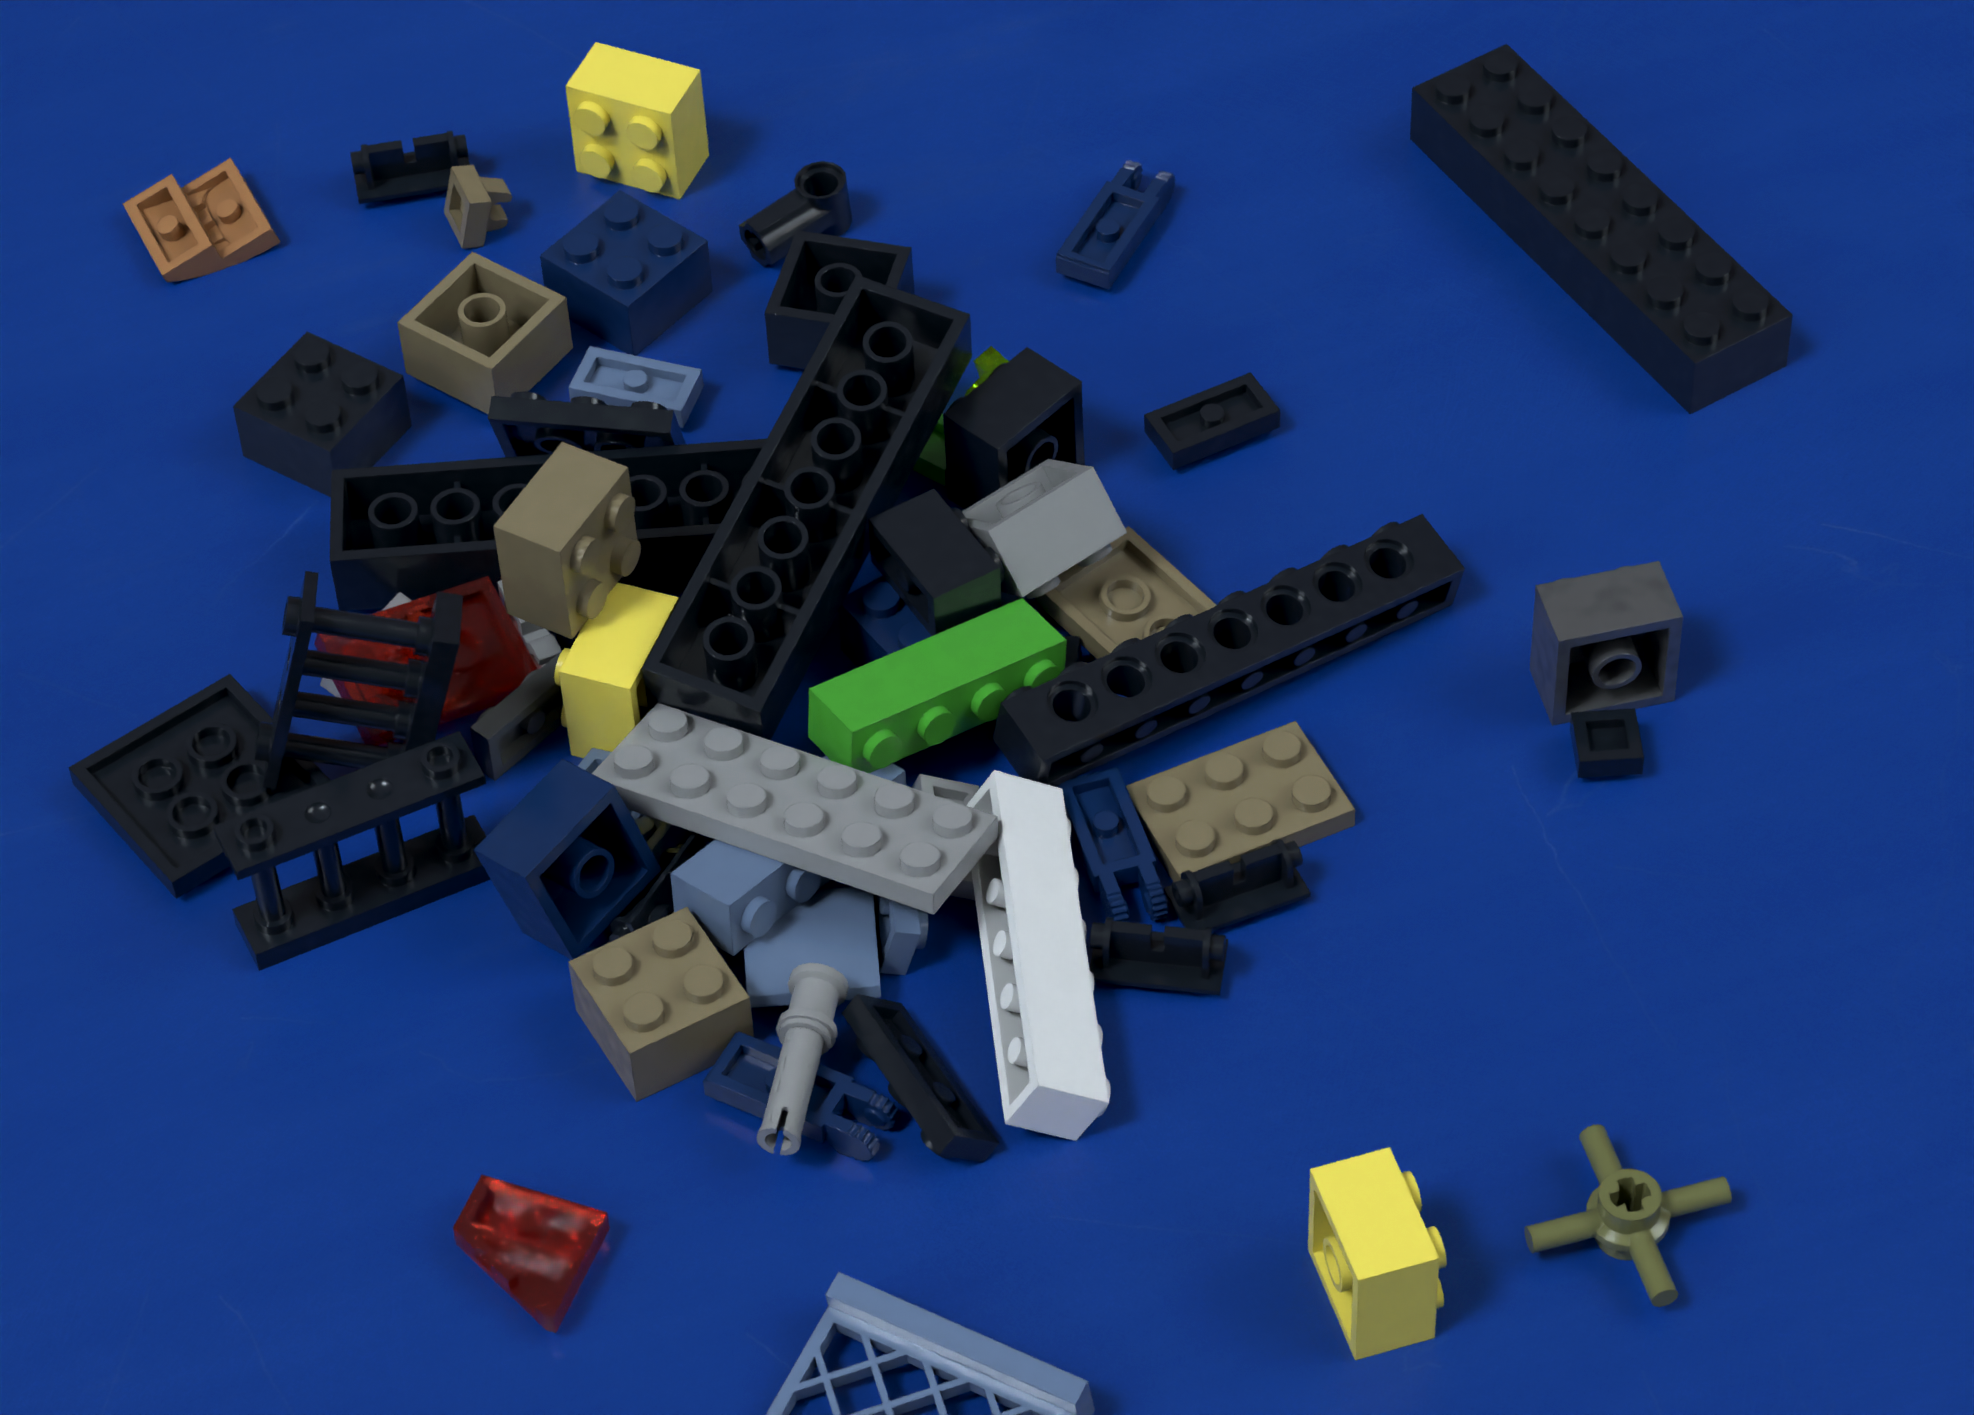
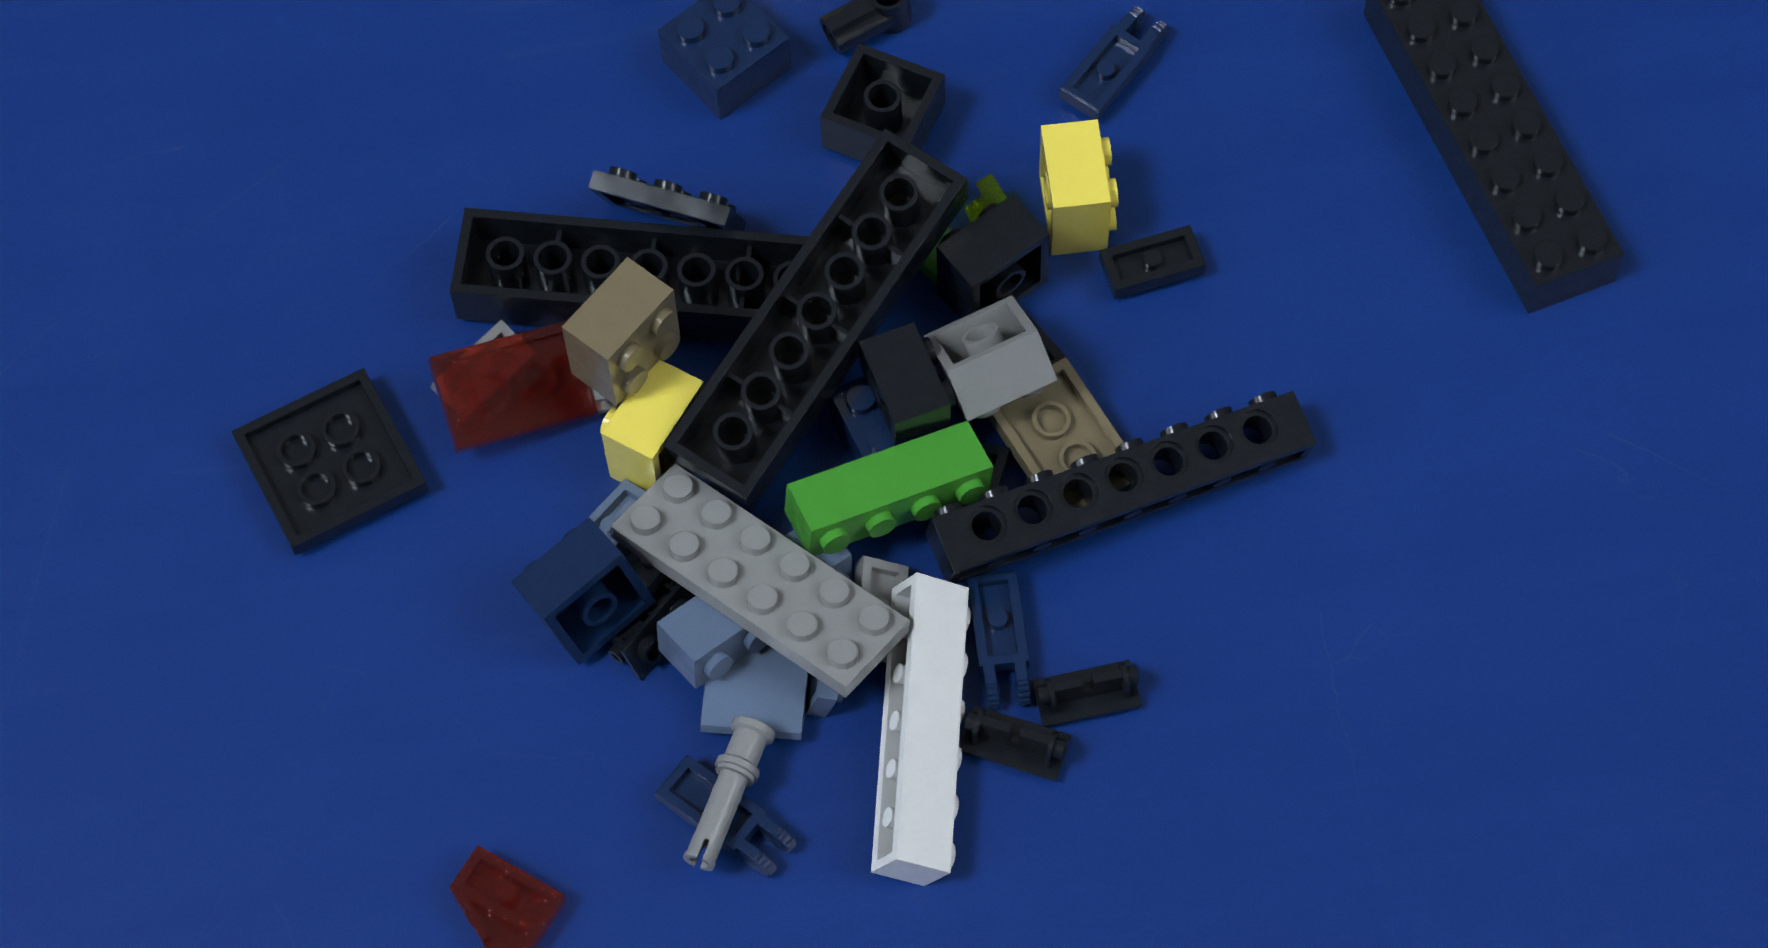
camera: 10 degrees right, 15 degrees up
(321, 413) = (471, 142): black brick -> none
(368, 889) = (428, 553): black fence -> none
(421, 680) = (485, 453): black fence -> none
(485, 333) = (605, 91): dark tan brick -> none
(518, 722) = (568, 452): dark grey plate -> none
(628, 378) = (715, 153): sand blue plate -> none
(660, 1002) = (635, 720): dark tan brick -> none
(919, 1079) = (816, 819): black plate -> none
(1102, 342) = (1077, 186): none -> light yellow brick
(1240, 801) = (1104, 615): dark tan plate -> none
(1605, 641) = (1411, 530): flat silver brick -> none
(1606, 743) = (1395, 612): black plate -> none

